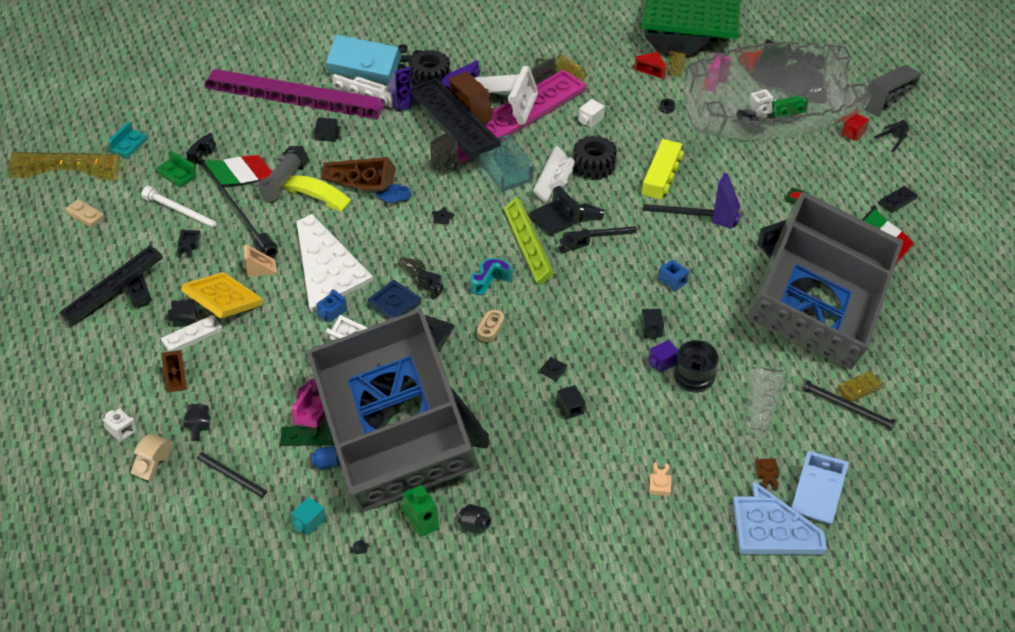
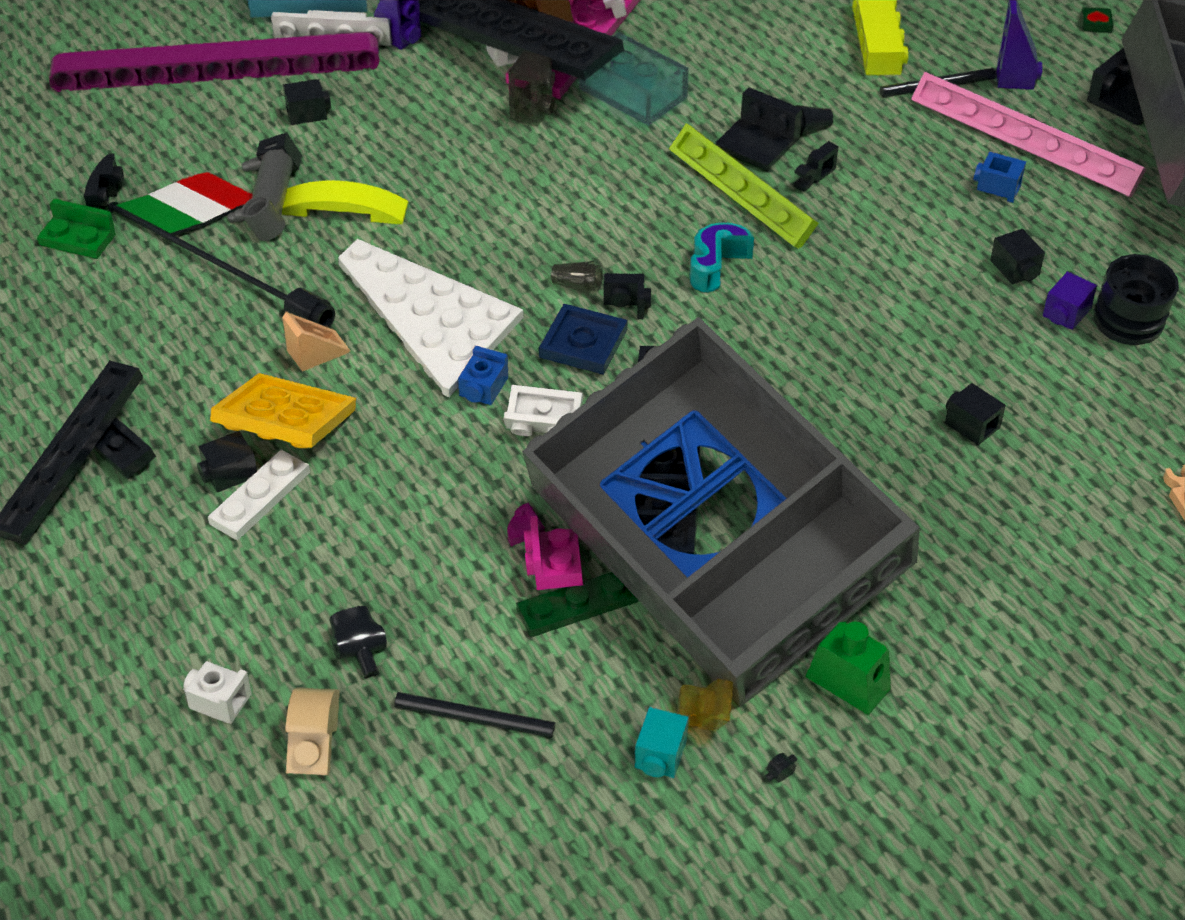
camera: 20 degrees left, 0 degrees up
(150, 193) = (50, 281): white piece -> none
(174, 370) = (268, 565): reddish brown slope -> none
(187, 241) = (165, 341): black plate -> none
(325, 458) = (630, 630): blue brick -> none
(338, 505) = (706, 707): none -> clear yellow bracket
(363, 174) = (412, 152): reddish brown wedge -> none
(395, 193) = (477, 171): blue plate -> none
(443, 212) = (585, 186): black plate -> none
(474, 518) = (947, 652): black head -> none
(488, 328) = (766, 332): tan plate -> none
(553, 369) = (908, 371): black plate -> none
(554, 173) = (720, 76): white bracket -> none
(594, 157) = (766, 36): black tyre -> none
(607, 232) = (850, 142): black bar -> none
(706, 255) = (1029, 134): none -> bright pink plate

